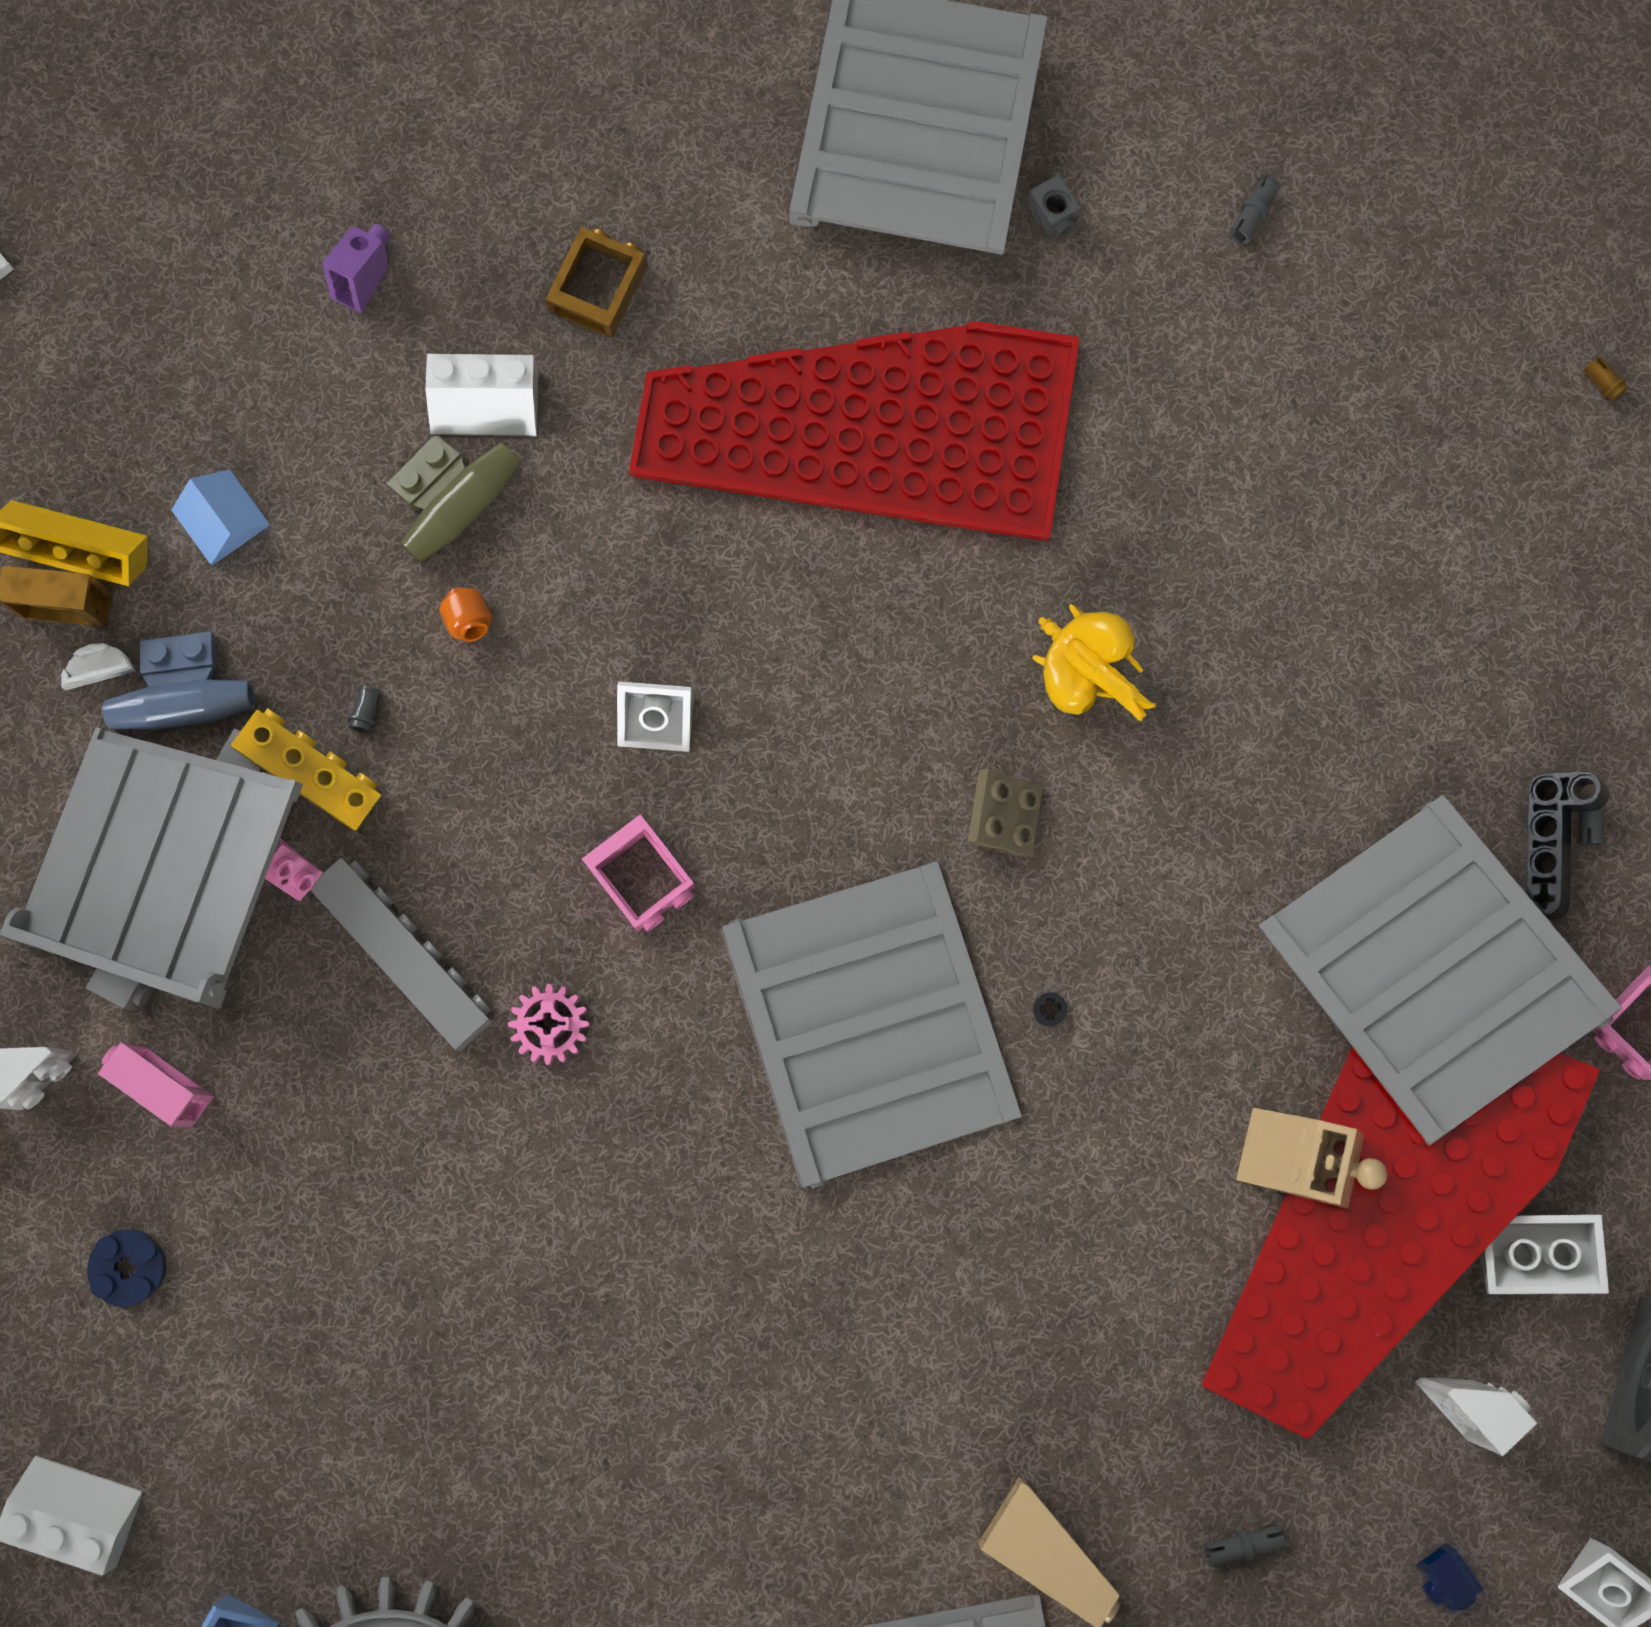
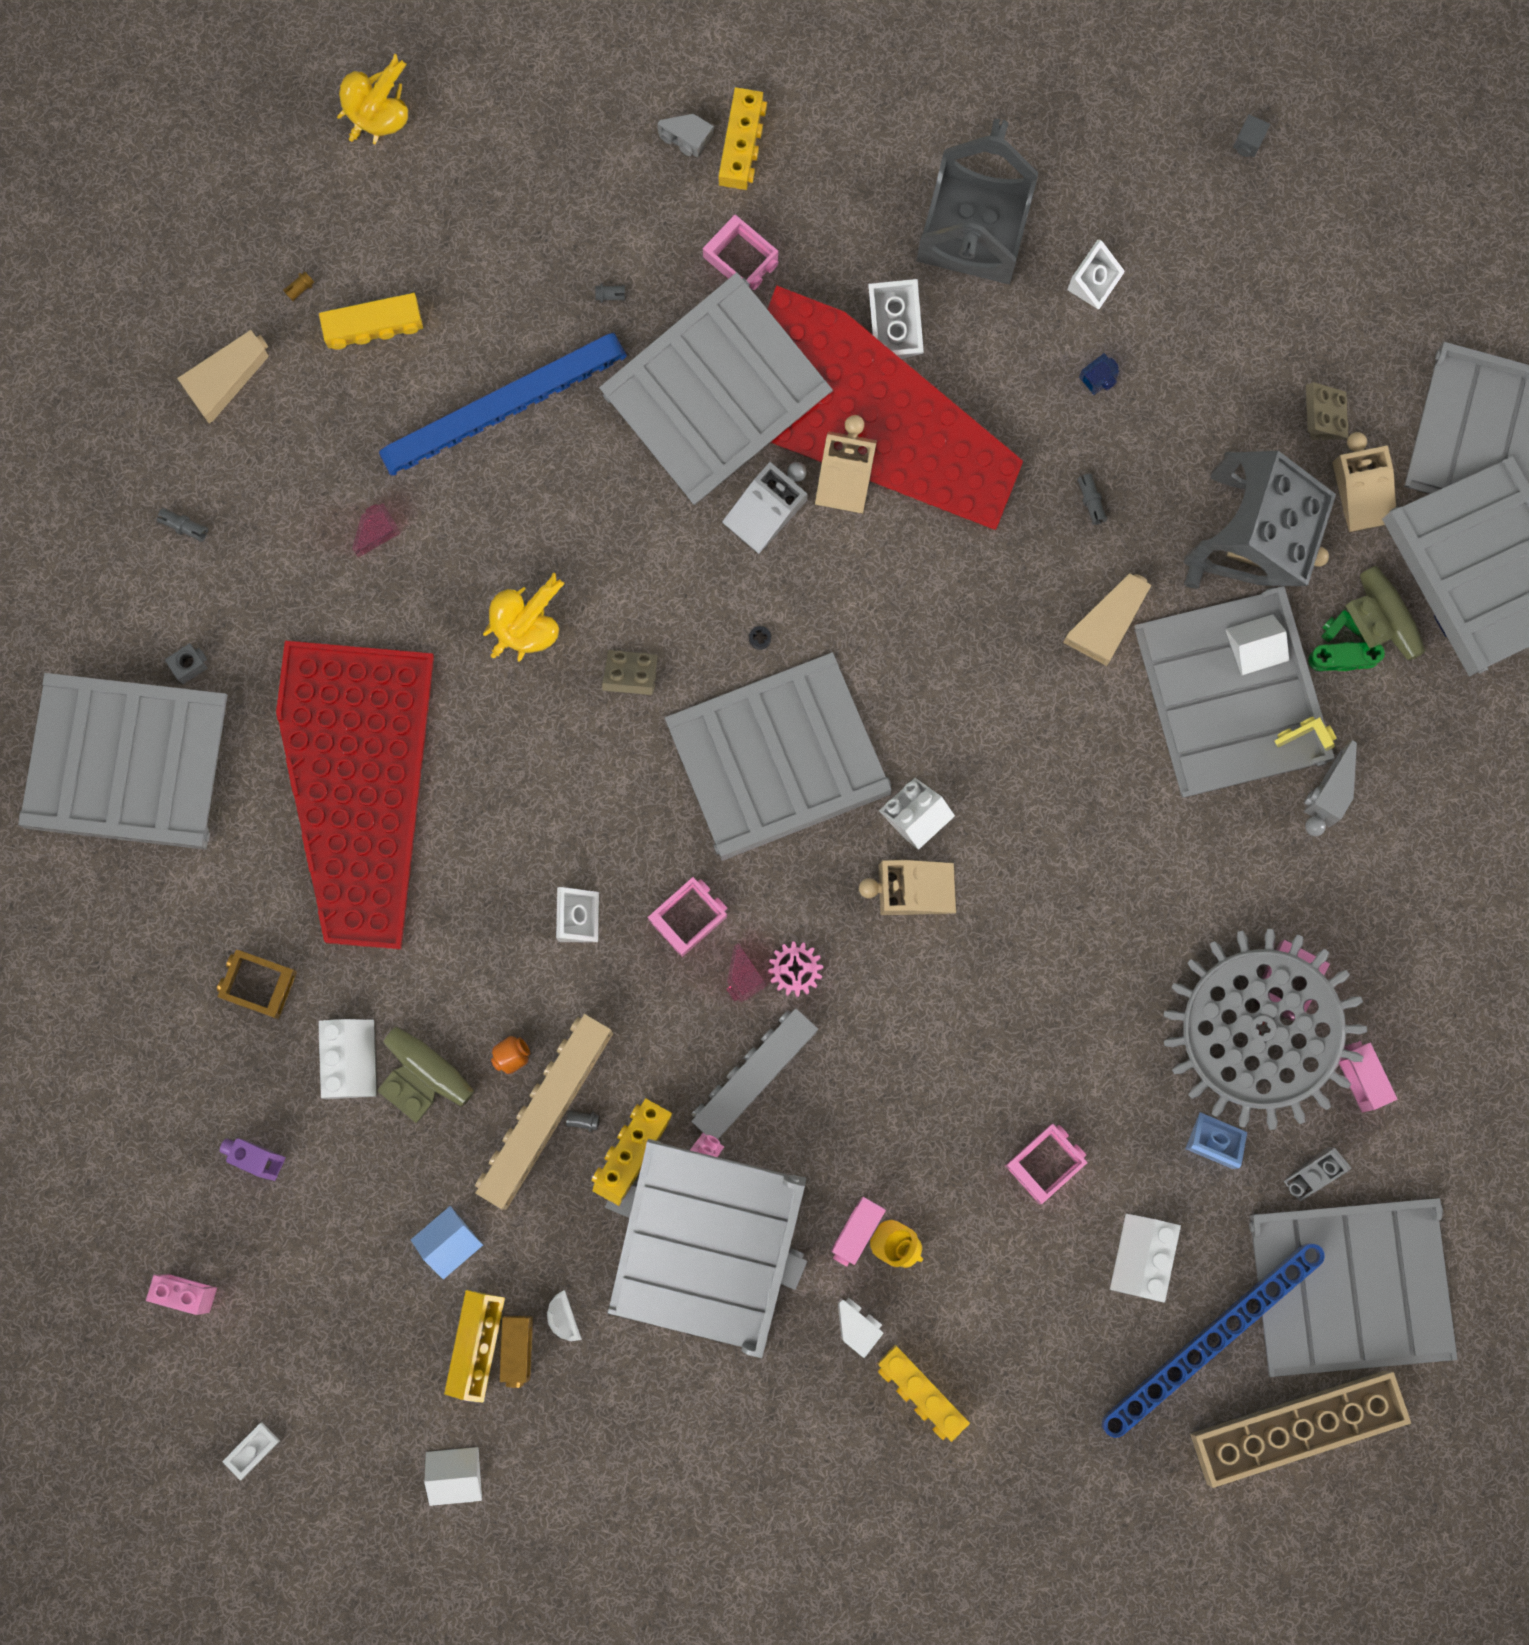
camera: 95 degrees left, 0 degrees up
(109, 1283) = (992, 1253): dark blue plate -> none
(131, 1142) = (896, 1244): none -> yellow piece
(176, 174) = (179, 1295): none -> bright pink window
(179, 687) = (575, 1255): sand blue plate -> none
(198, 1397) = (1028, 1182): none -> bright pink window
(372, 650) = (544, 1112): none -> tan brick
(544, 947) = (743, 977): none -> clear pink slope
(653, 1216) = (918, 887): none -> tan slope
(767, 1224) = (917, 813): none -> white slope
(1236, 465) = (374, 529): none -> clear pink slope
(1245, 1030) = (763, 510): none -> light grey slope
(1424, 658) = (501, 403): none -> blue beam
(1474, 271) = (223, 374): none -> tan slope
(1481, 1411) = (996, 355): white slope -> none
(1551, 475) = (371, 321): none -> yellow brick
(1558, 844) = (627, 312): black beam -> none

